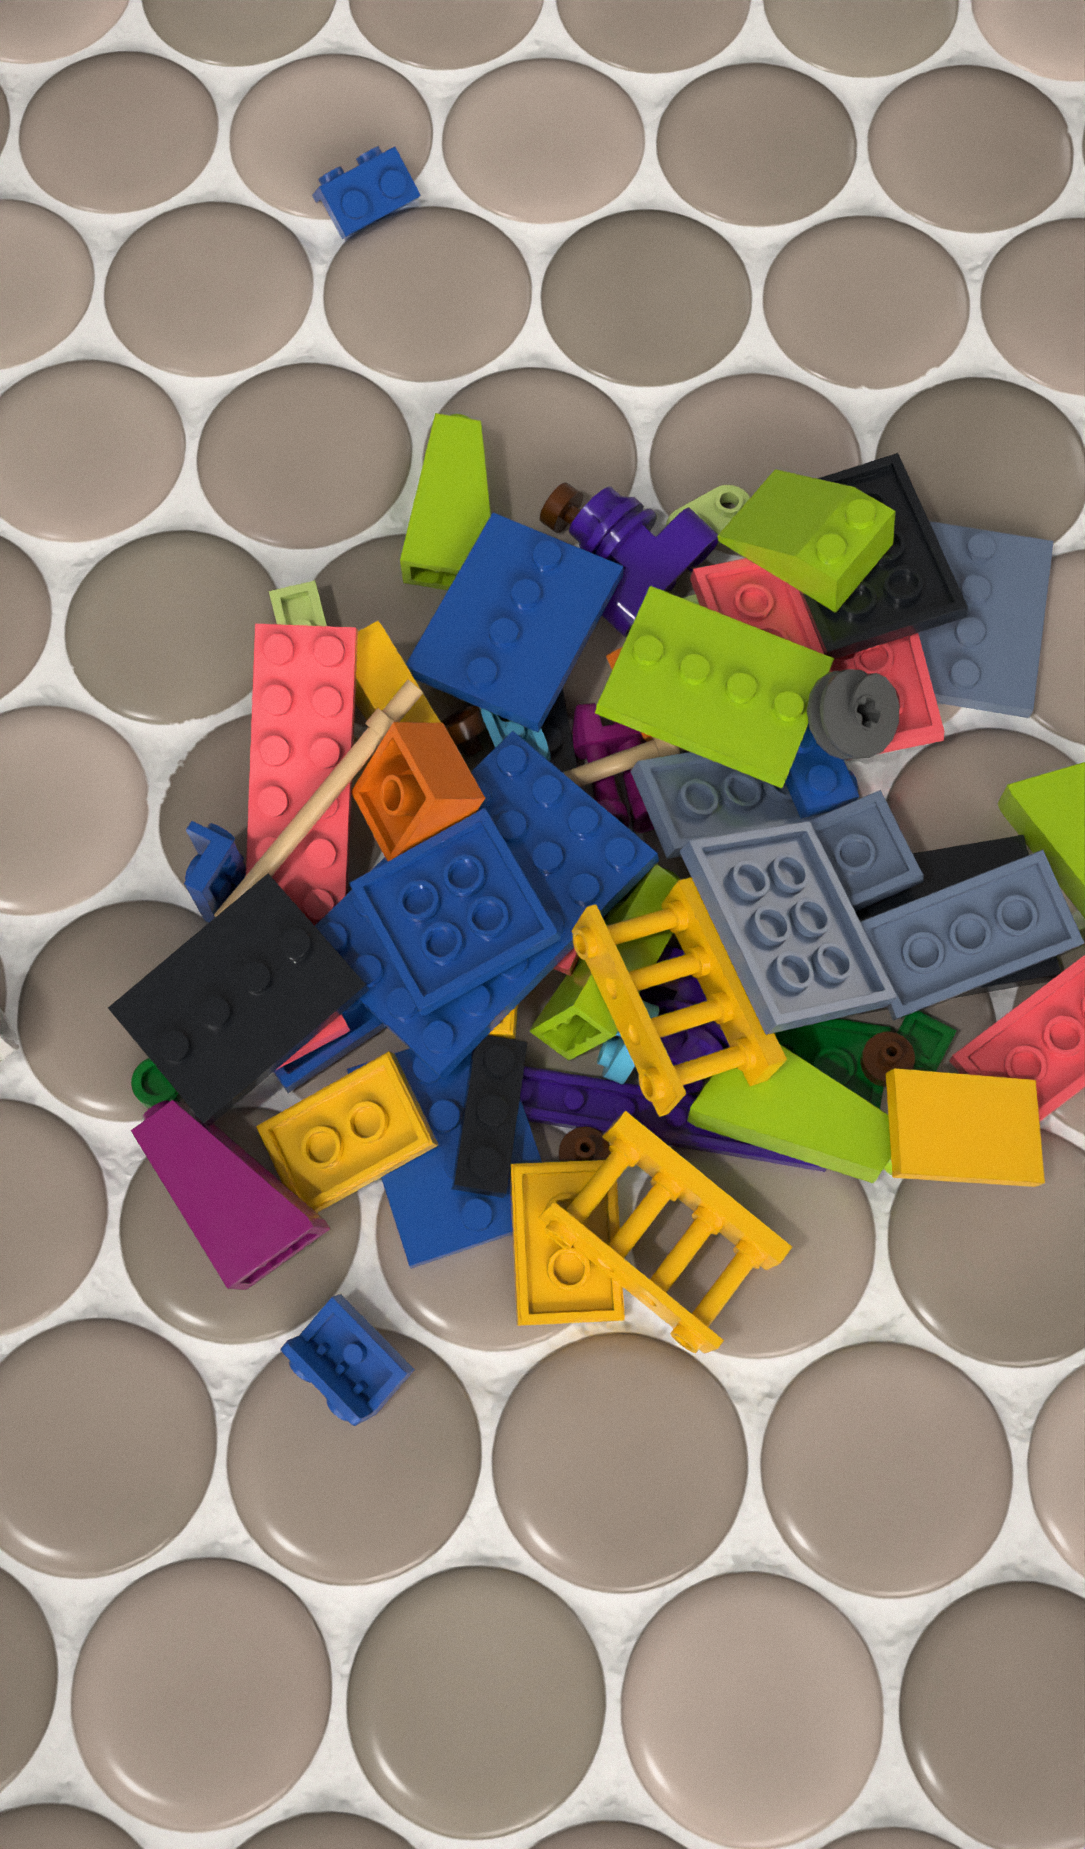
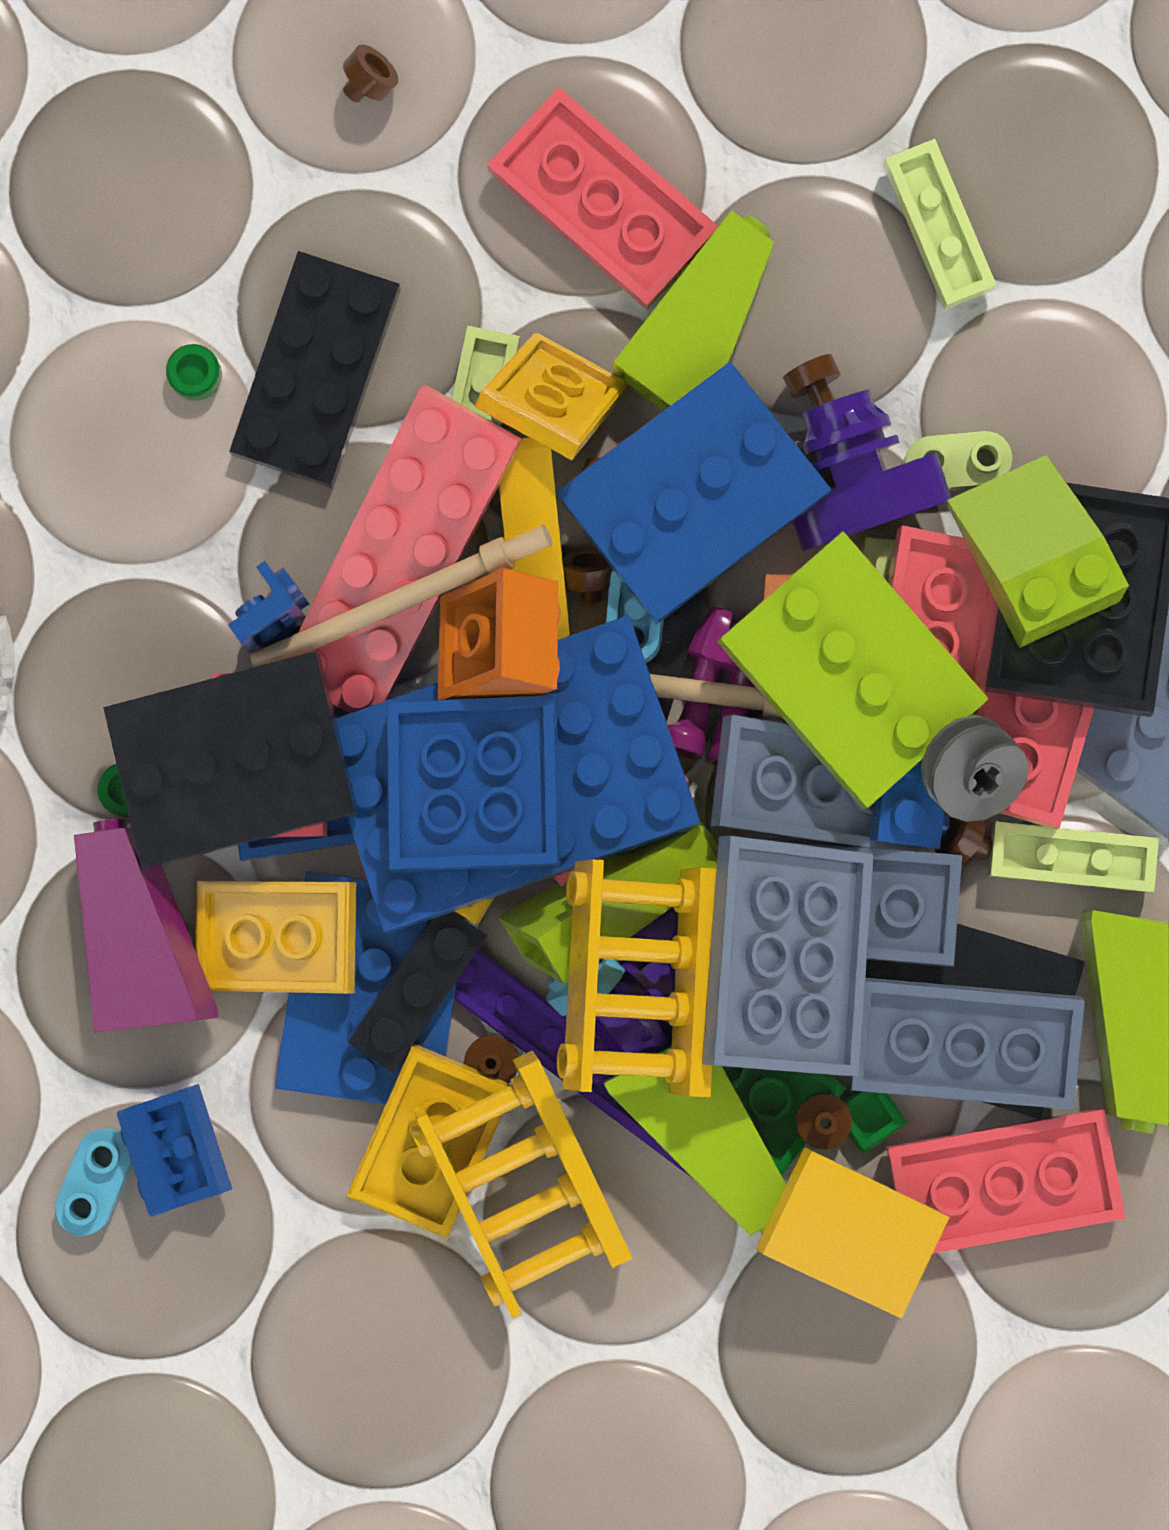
camera: 25 degrees right, 15 degrees up
(60, 731) = (193, 372): none -> green tile
(98, 452) = (368, 74): none -> reddish brown tile
(160, 685) = (315, 369): none -> black plate
(288, 1428) = (93, 1182): none -> medium azure plate
(328, 457) = (602, 198): none -> coral plate
(363, 600) = (552, 395): none -> yellow tile
(600, 362) = (939, 224): none -> yellowish green plate
(874, 777) = (965, 840): none -> reddish brown tile
(966, 761) = (1073, 857): none -> yellowish green plate

